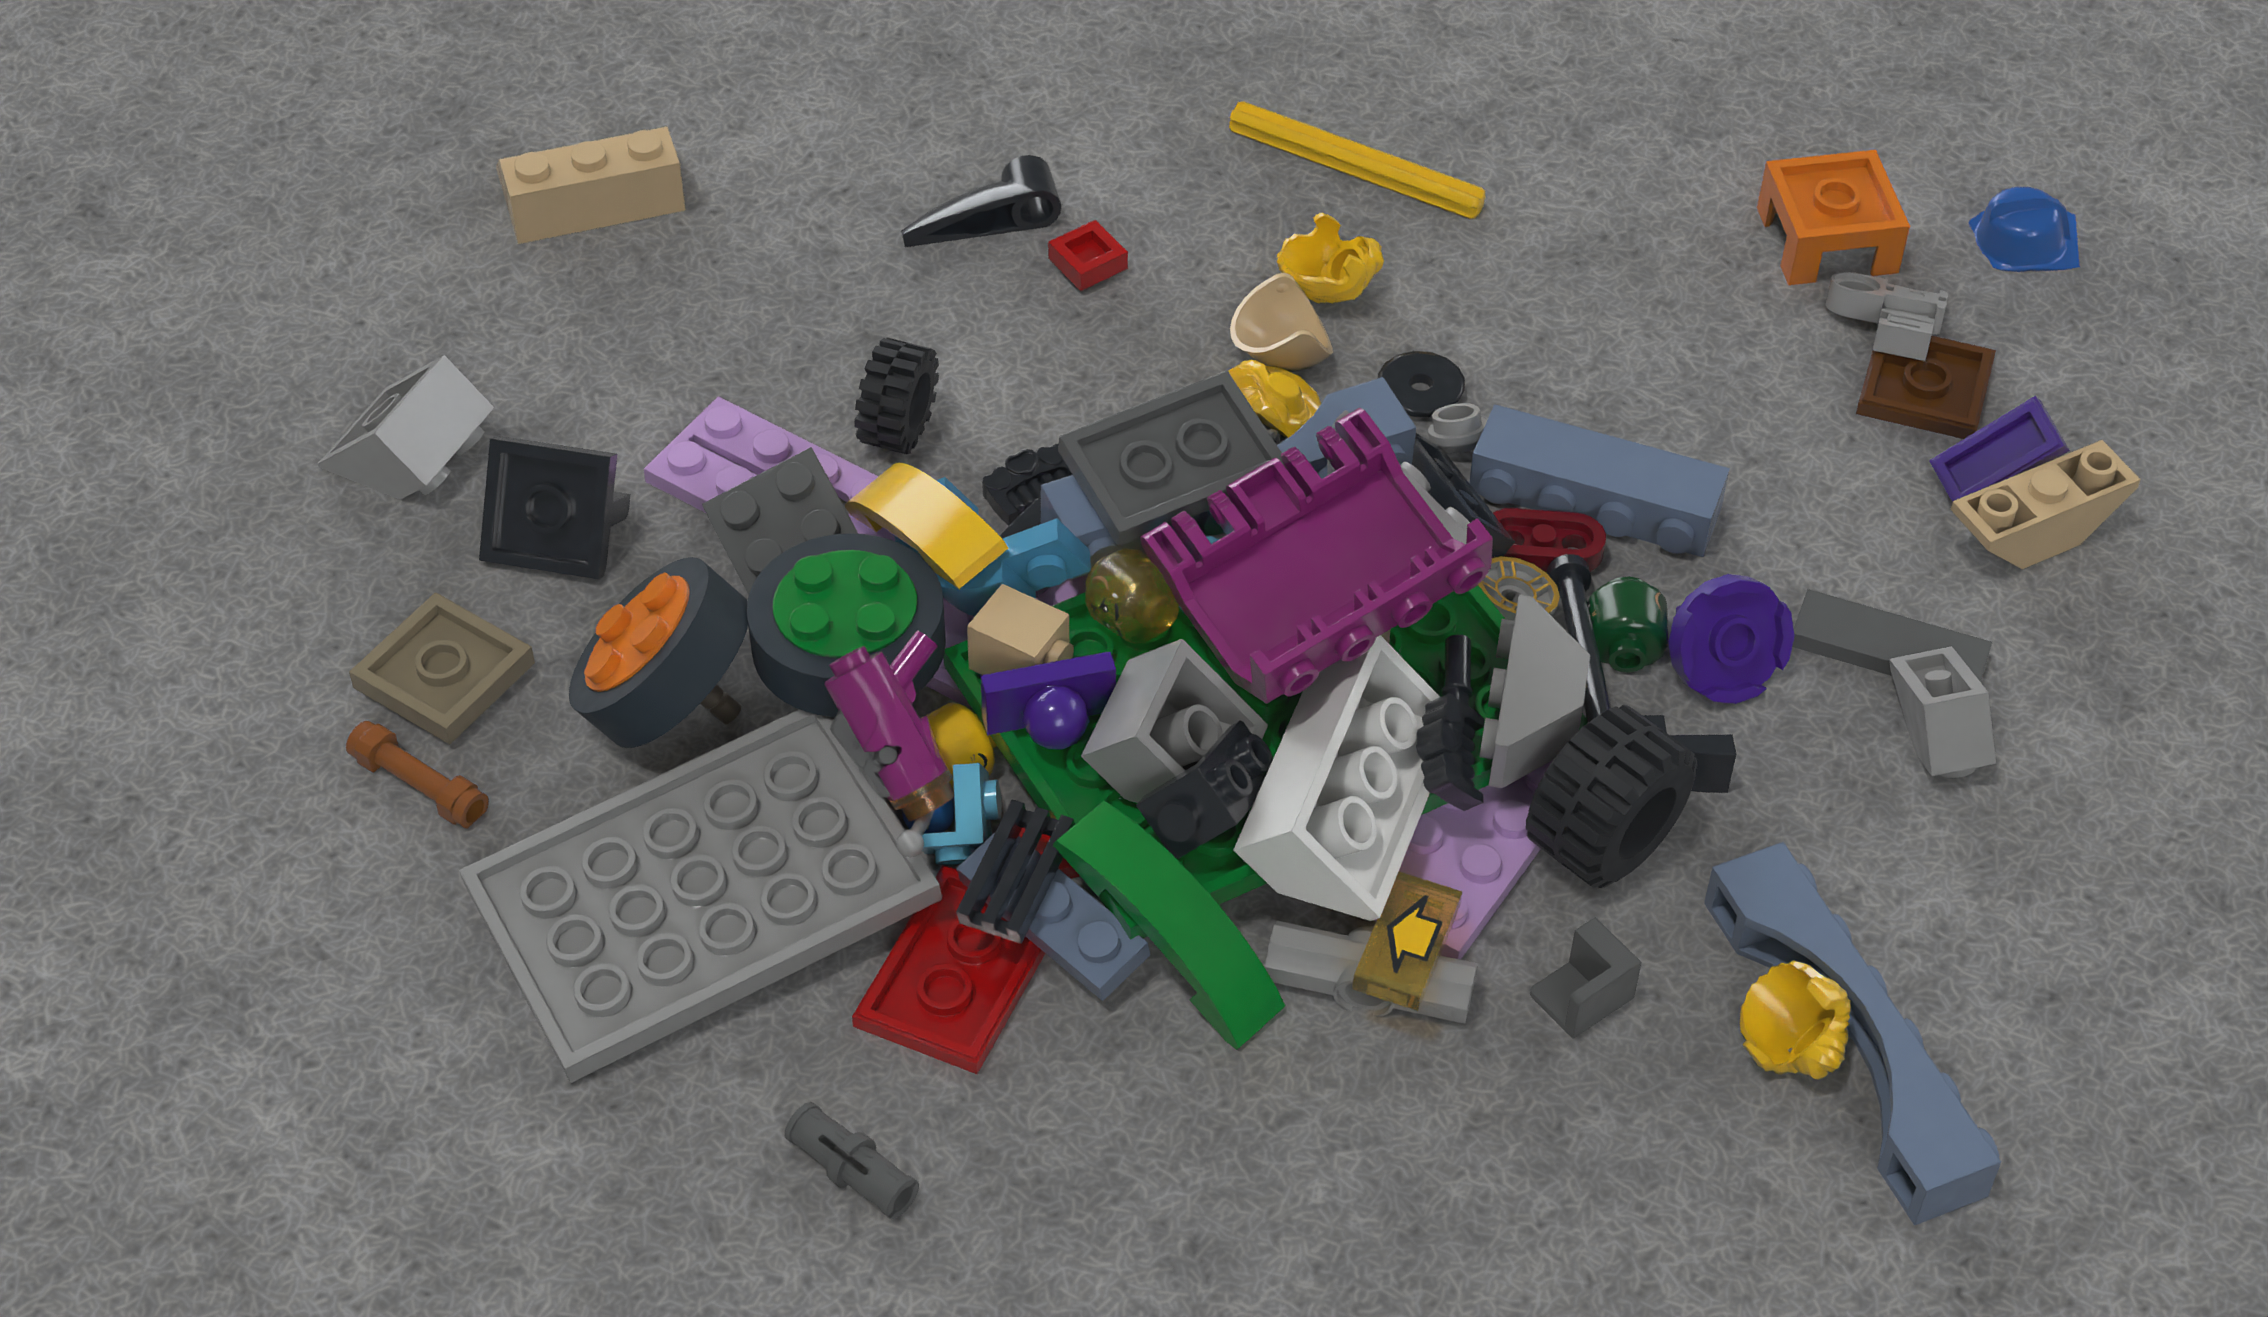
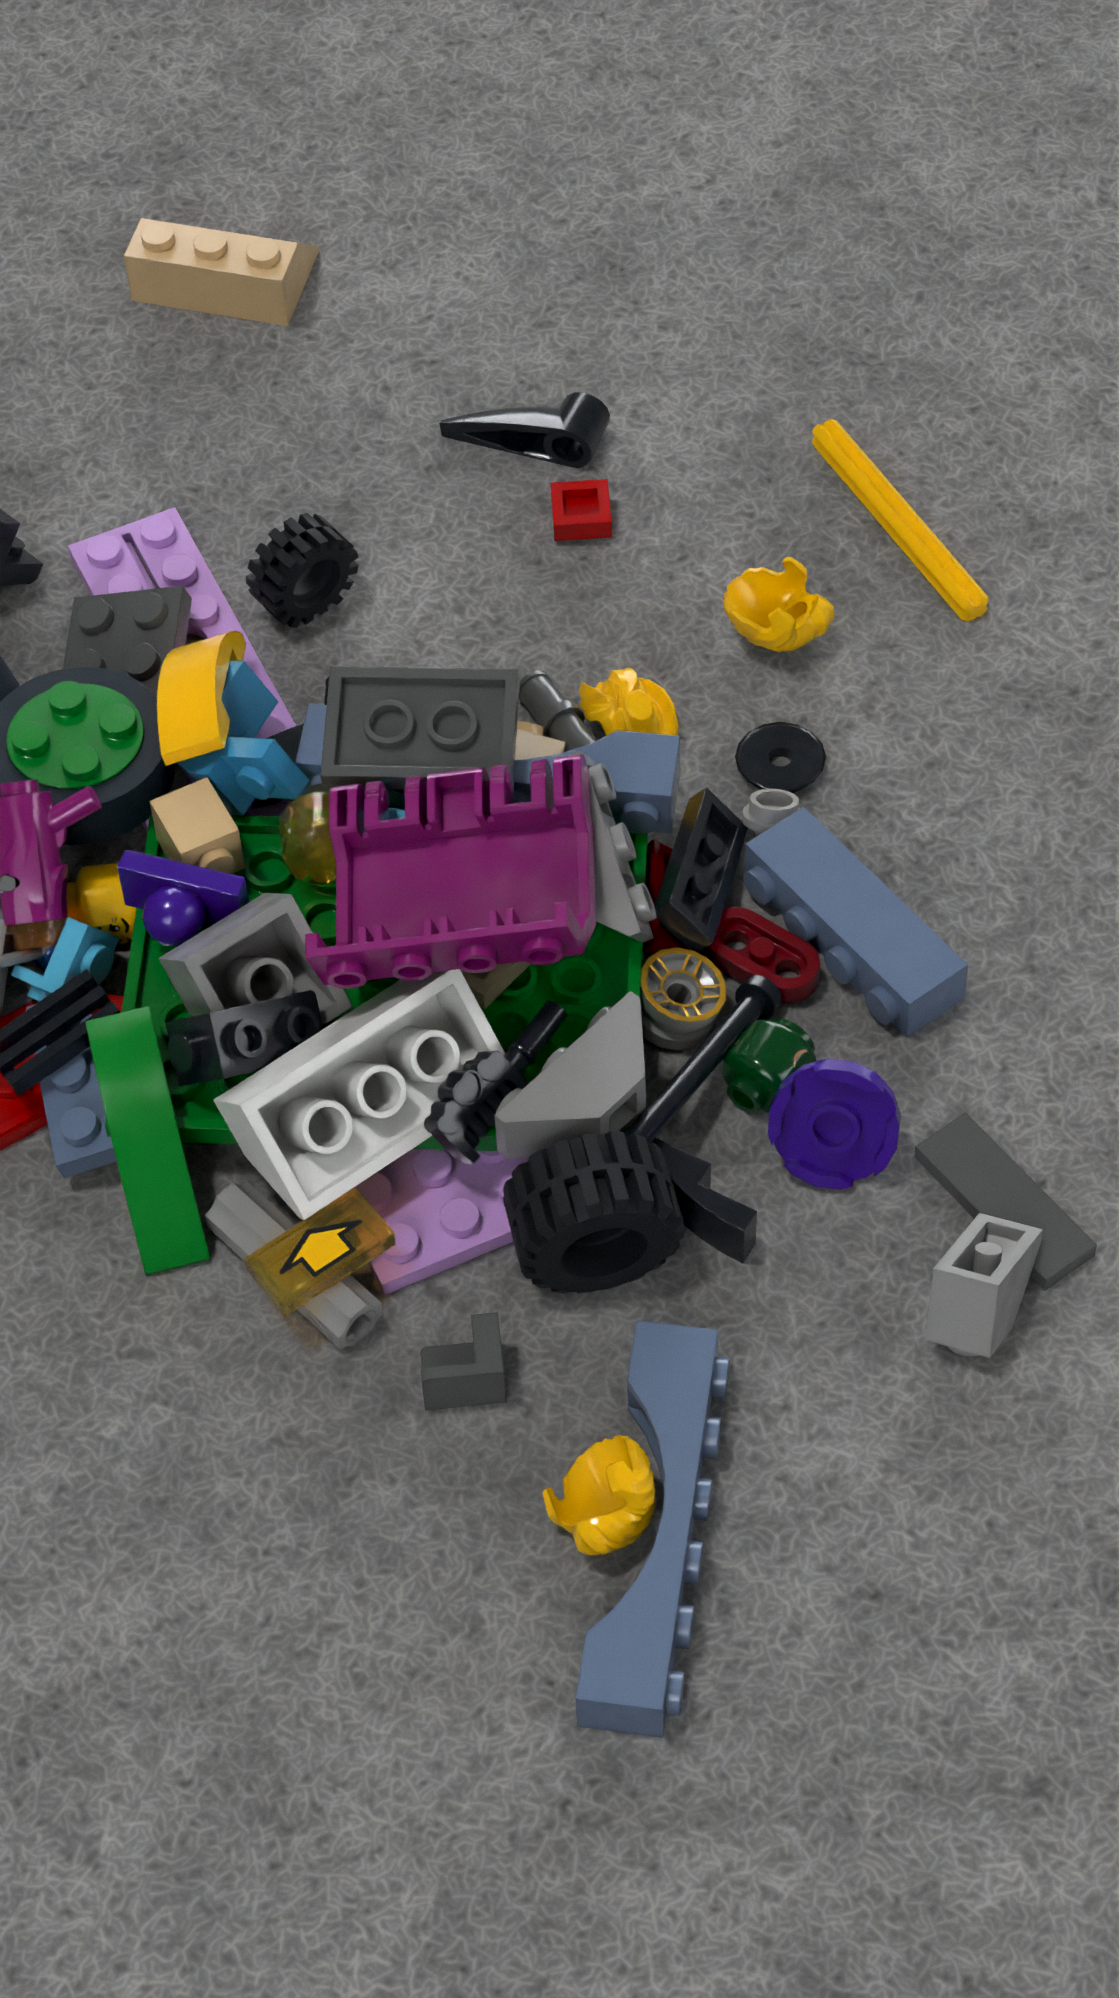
camera: 35 degrees right, 5 degrees up
(1280, 326) = (690, 650): tan helmet -> none

